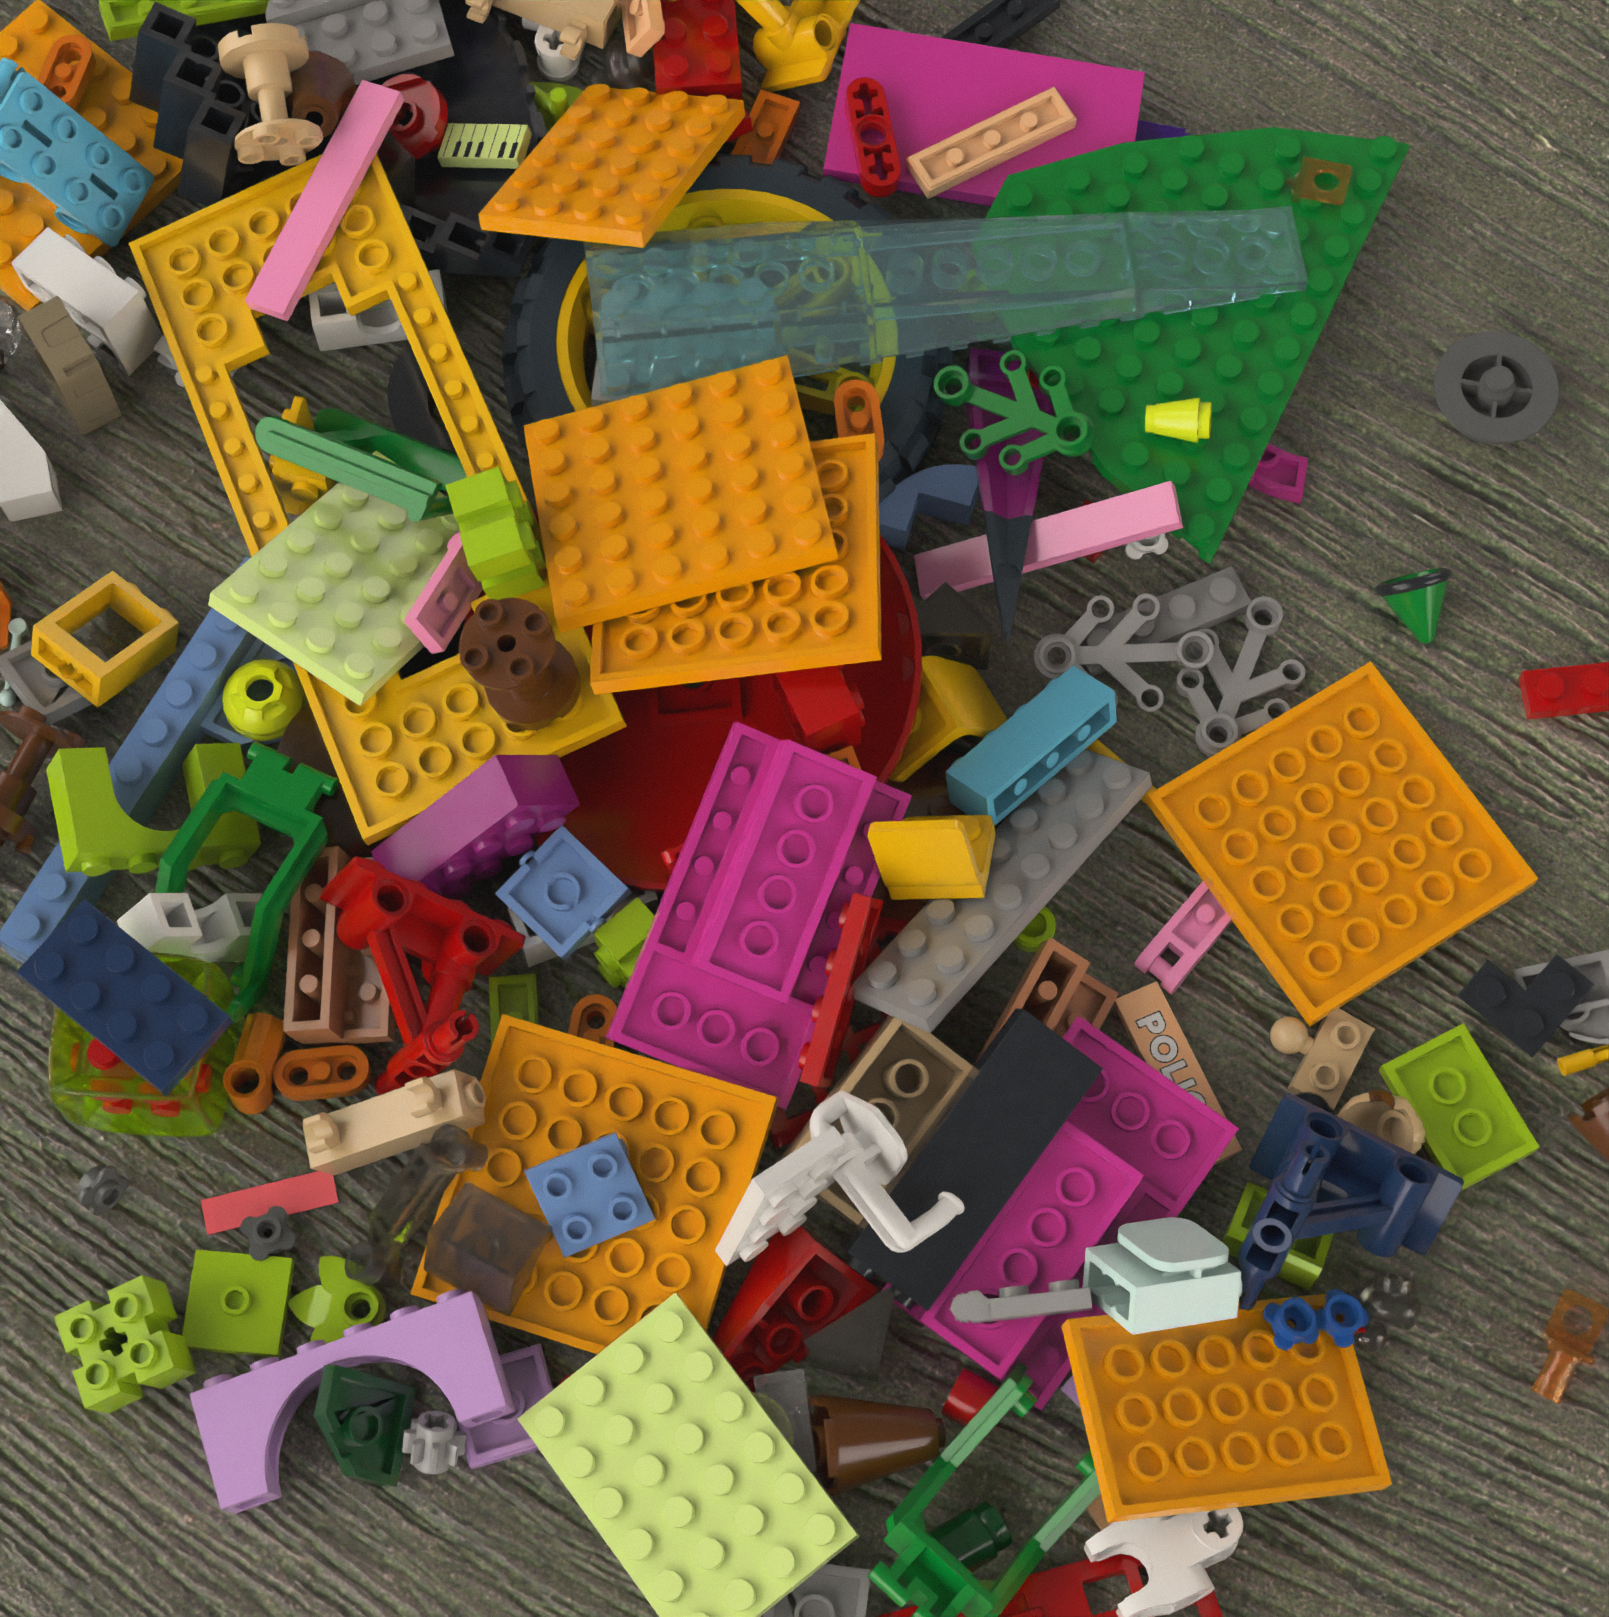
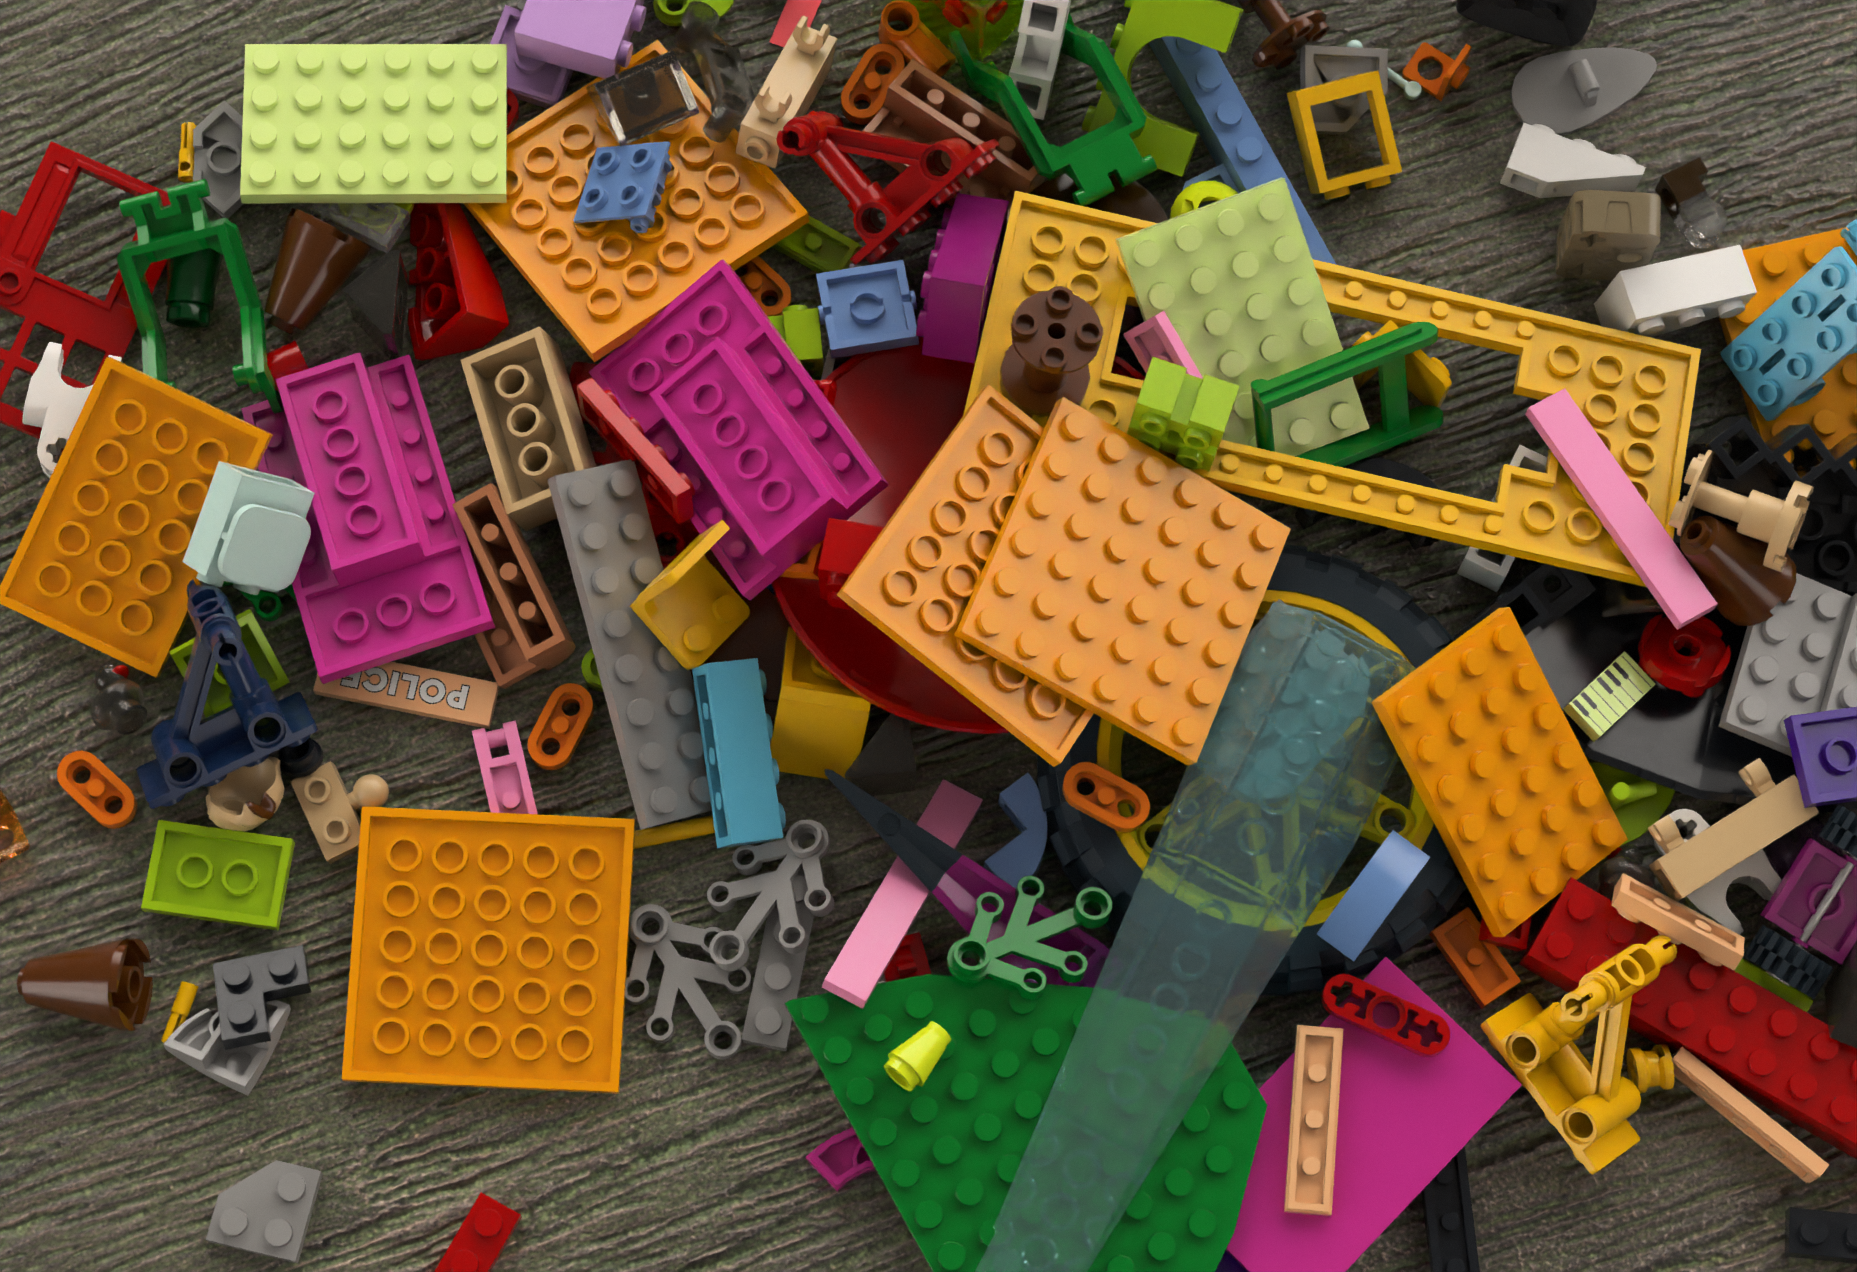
camera: 120 degrees right, 5 degrees up
(778, 177) = (1373, 895): none -> medium blue brick
(858, 1160) = (499, 302): white plate -> none
(978, 1152) = (440, 460): black brick -> none
(1017, 1303) = (308, 416): light grey hinge -> none
(1109, 917) = (560, 728): none -> orange plate
(1299, 1314) = (142, 613): blue plate -> none
(1349, 1308) = (121, 648): blue plate -> none
(1417, 600) = (648, 1175): green hat -> none
(1472, 1270) = (98, 790): none -> orange plate

